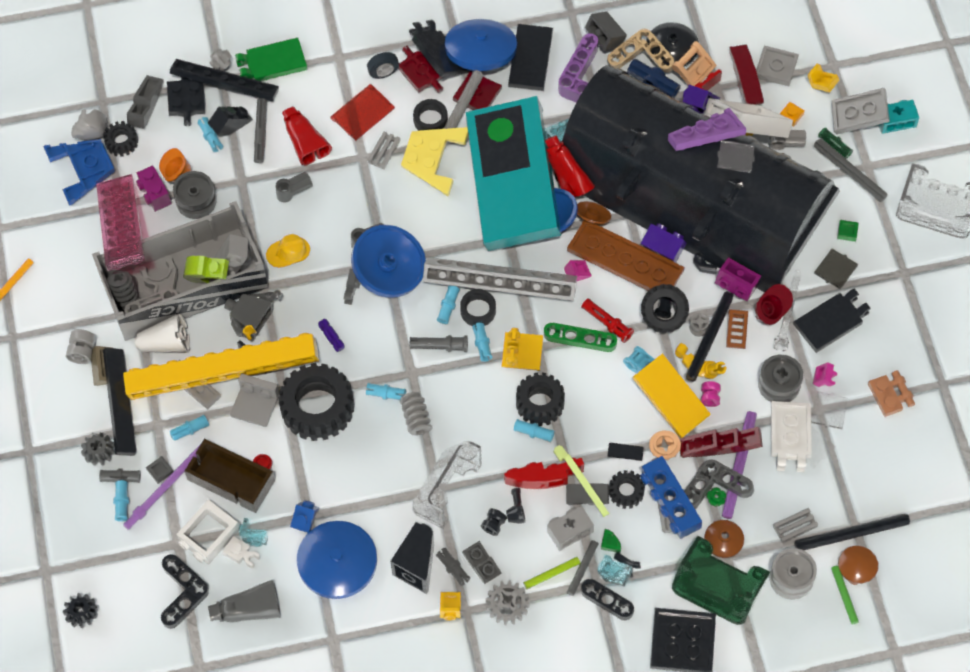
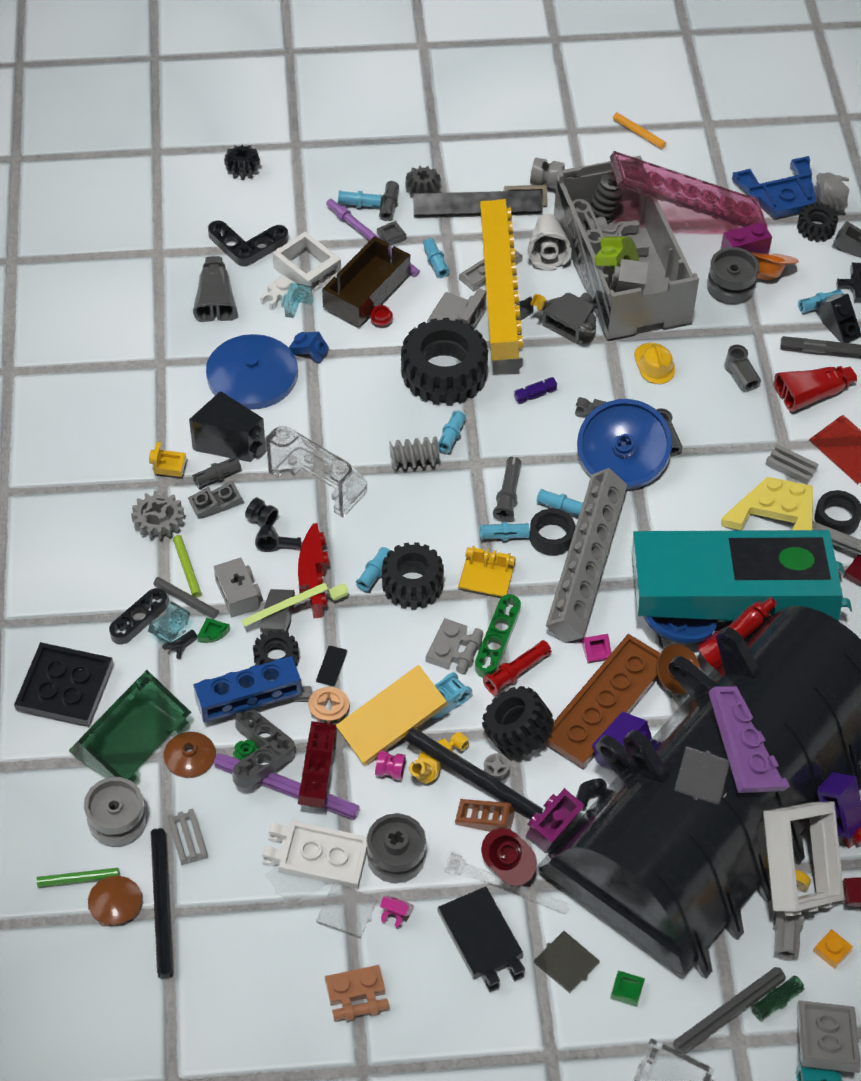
camera: 95 degrees right, 10 degrees down
(592, 371) = (447, 643): none -> light grey plate

